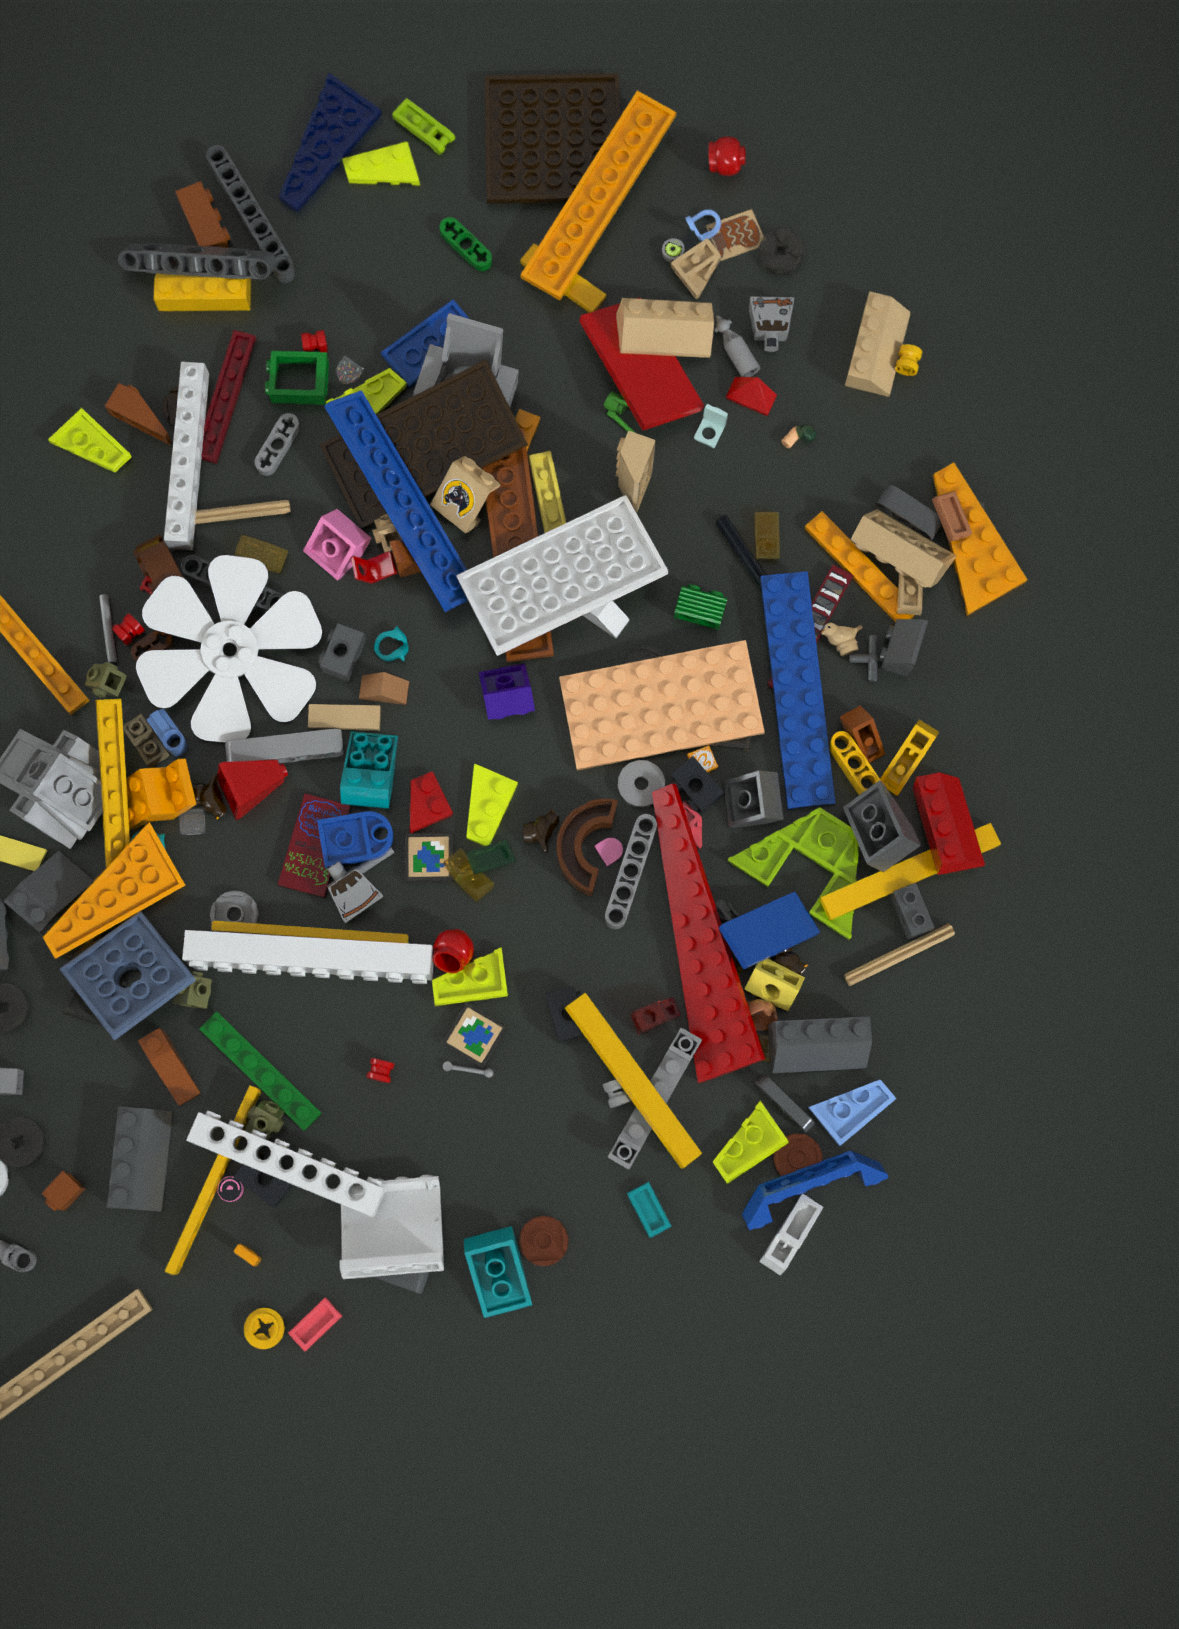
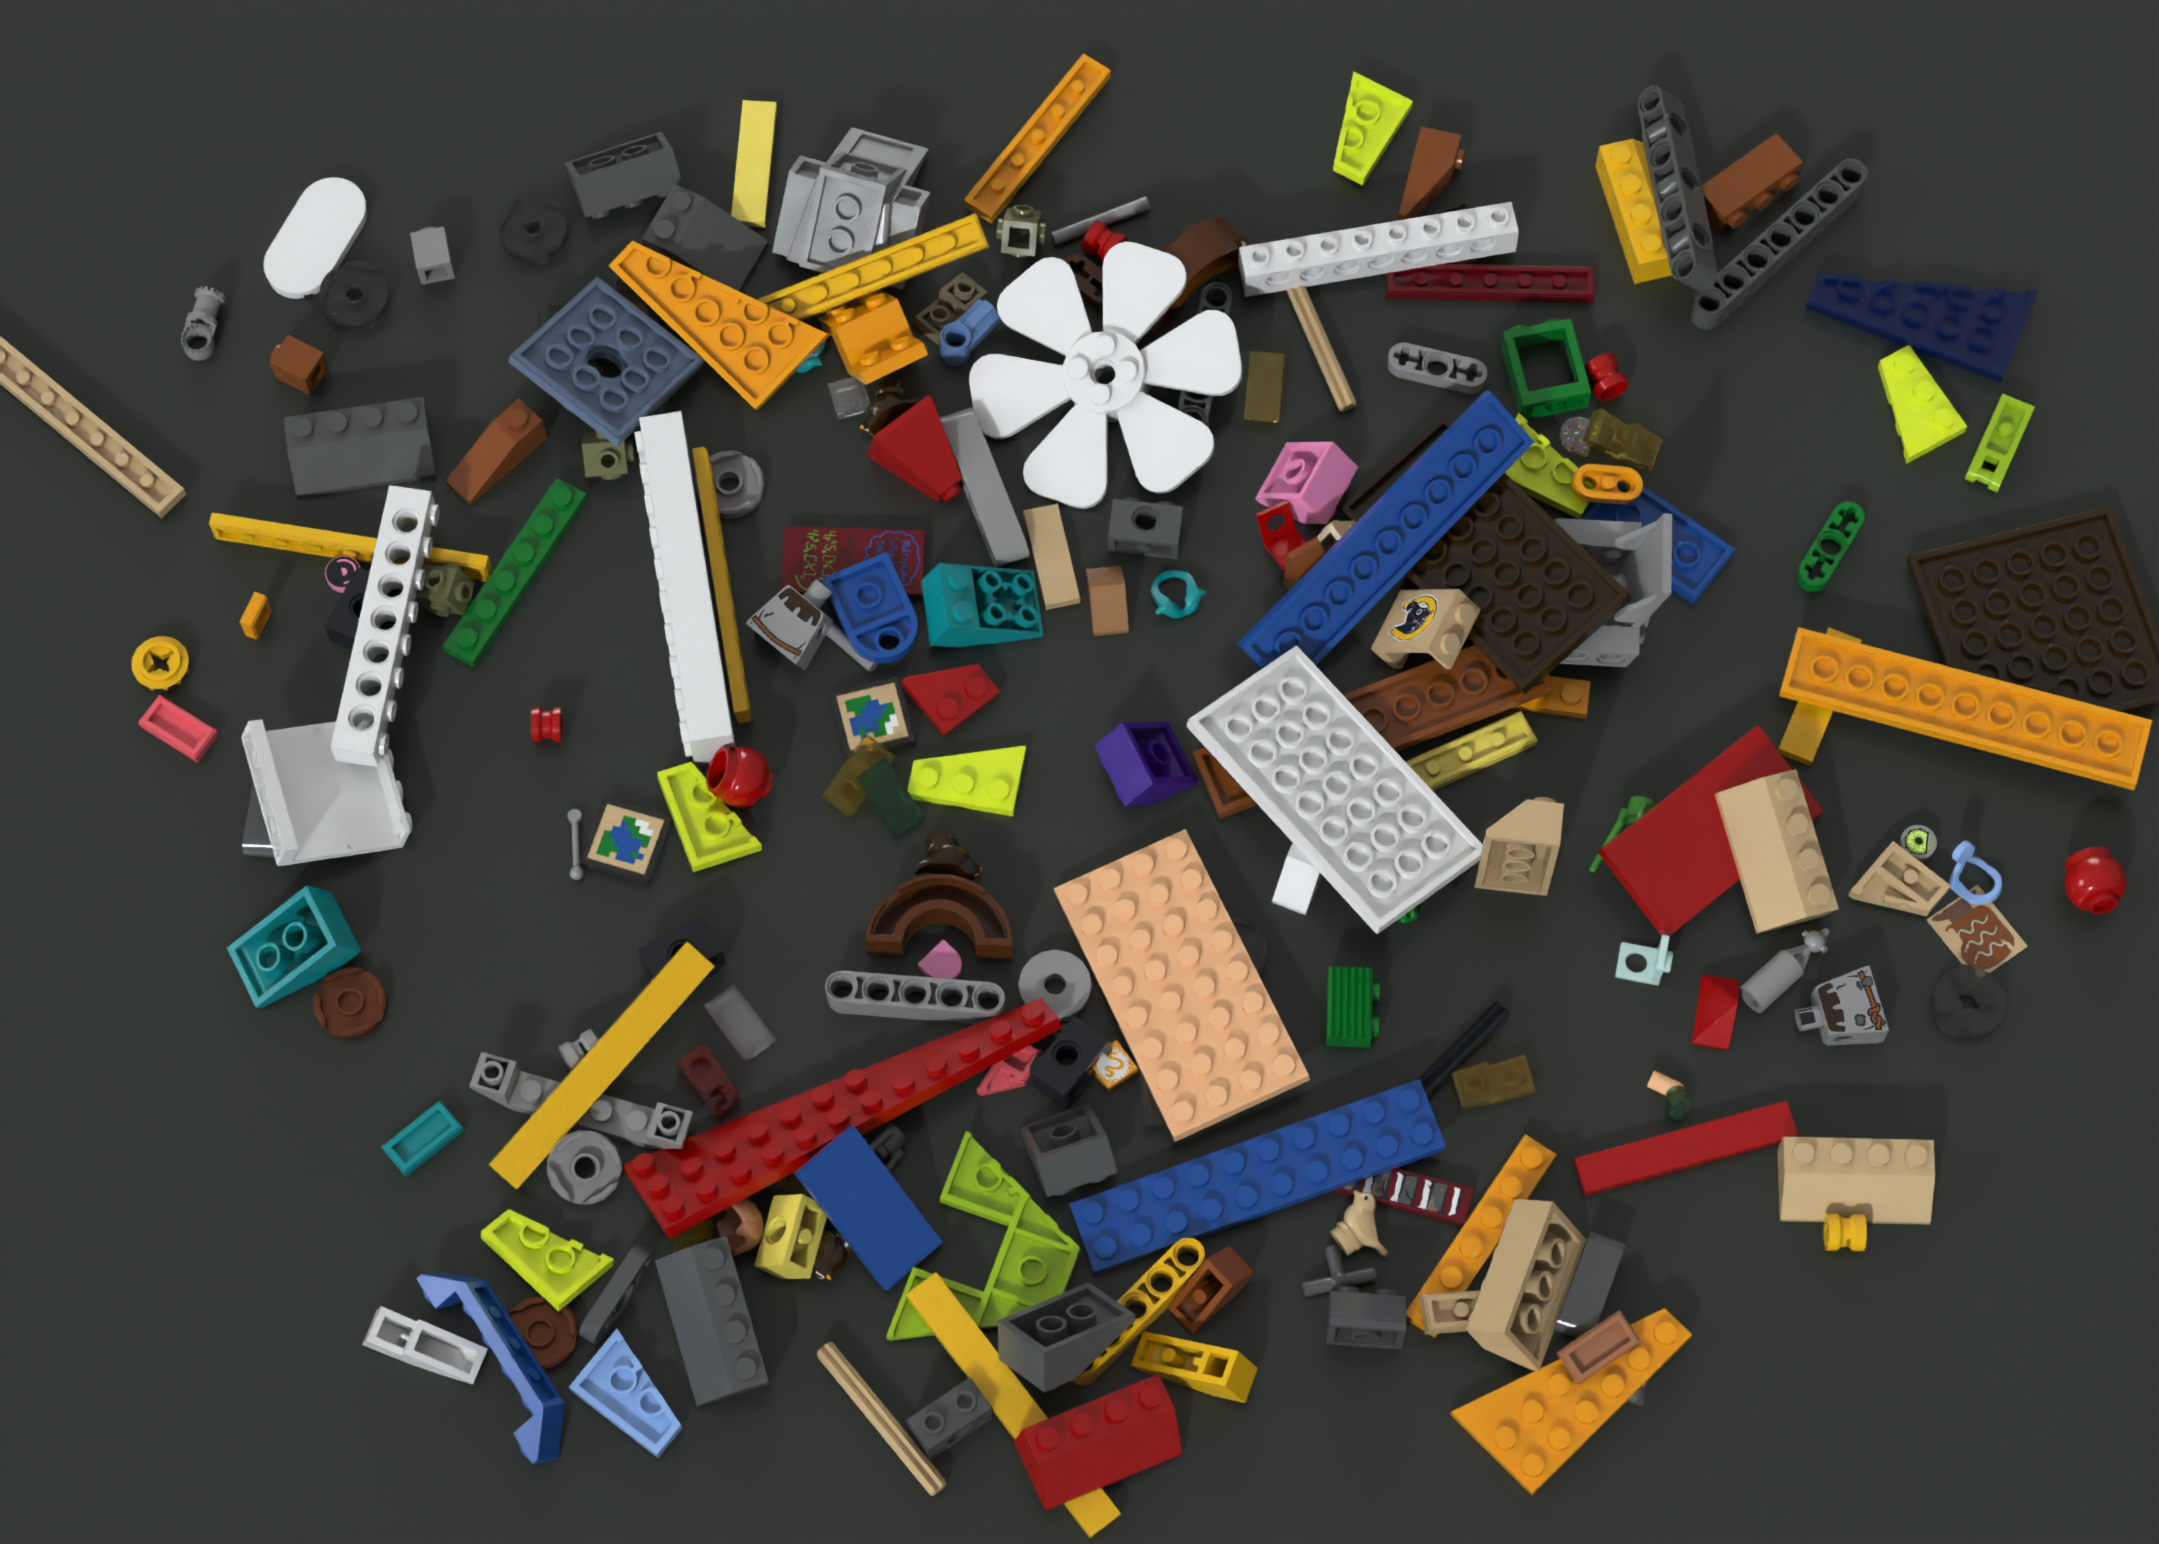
camera: 80 degrees right, 10 degrees down
(360, 346) = (1621, 441): none -> clear yellow slope
(392, 362) = (1604, 484): none -> light orange plate
(617, 988) = (739, 1023): none -> clear tile
(685, 1113) = (562, 1163): none -> light grey tile
(834, 436) = (1684, 1148): none -> red tile

